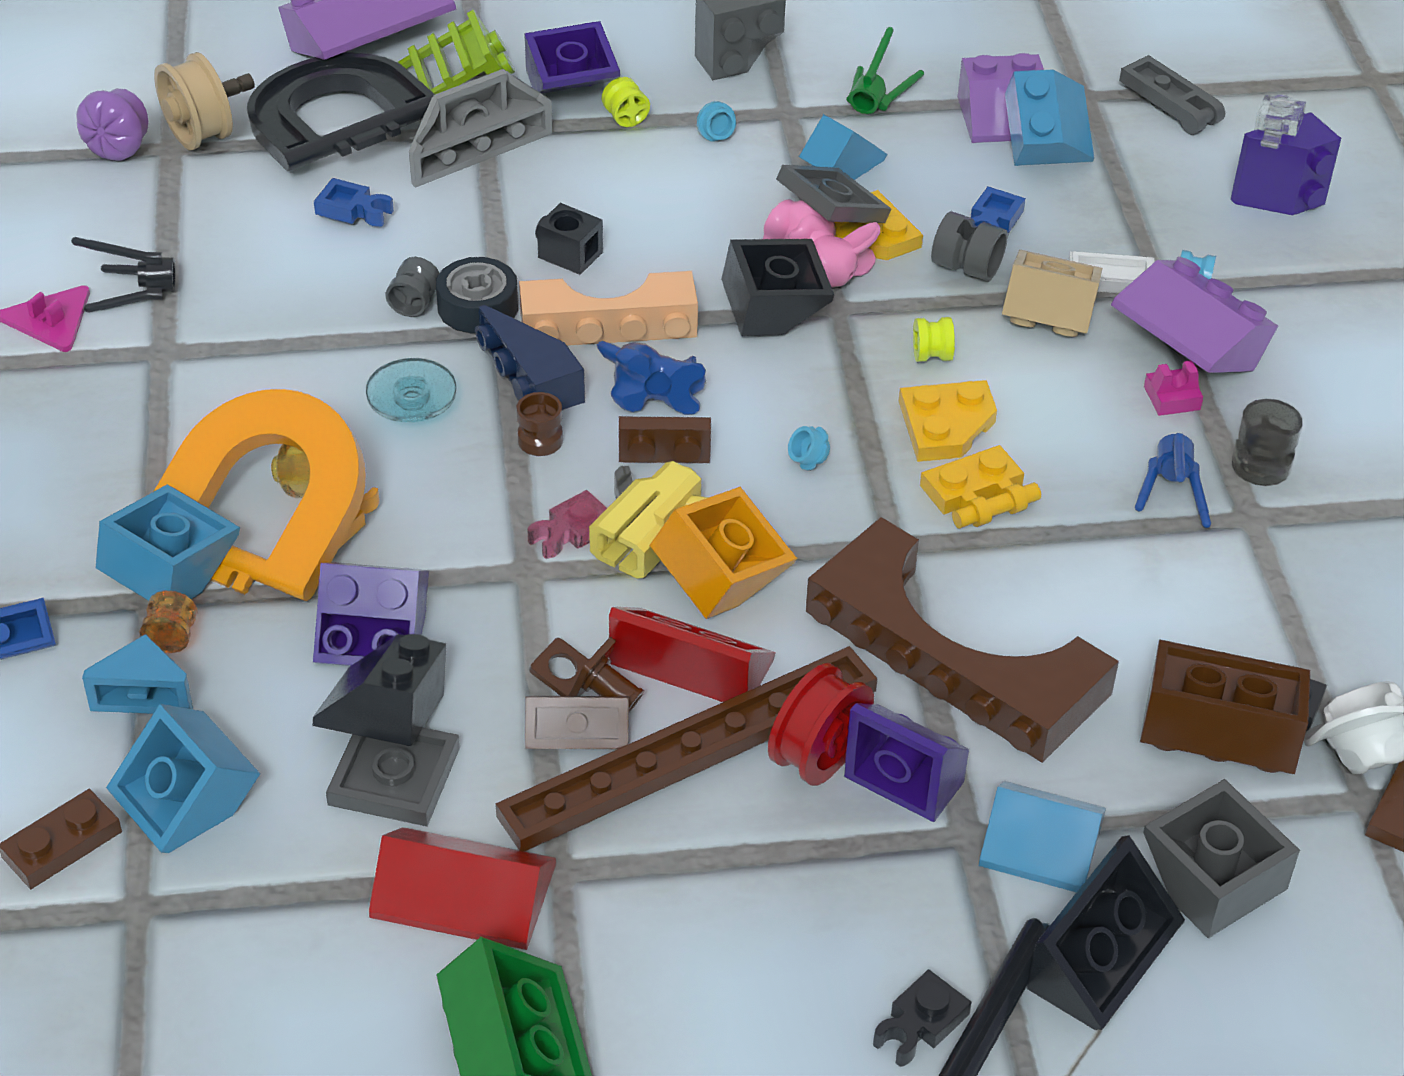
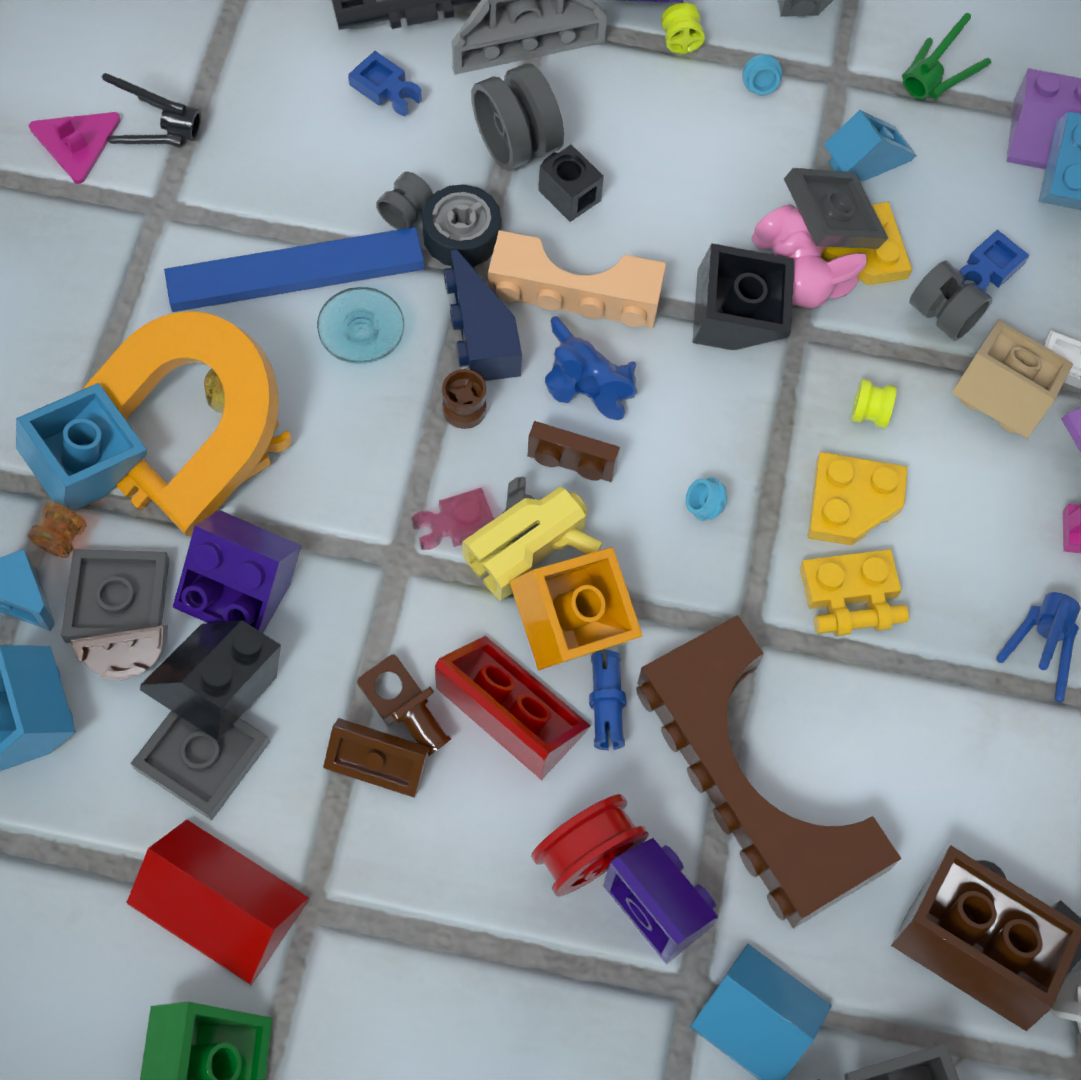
camera: 15 degrees right, 20 degrees up
(250, 667) = (114, 592): none -> dark grey tile
(280, 703) = (122, 653): none -> plate
(334, 360) = (293, 269): none -> blue tile
(499, 192) = (517, 116): none -> dark grey wheel
(658, 758) = (462, 816): reddish brown plate -> none
(784, 624) = (607, 700): none -> blue pin

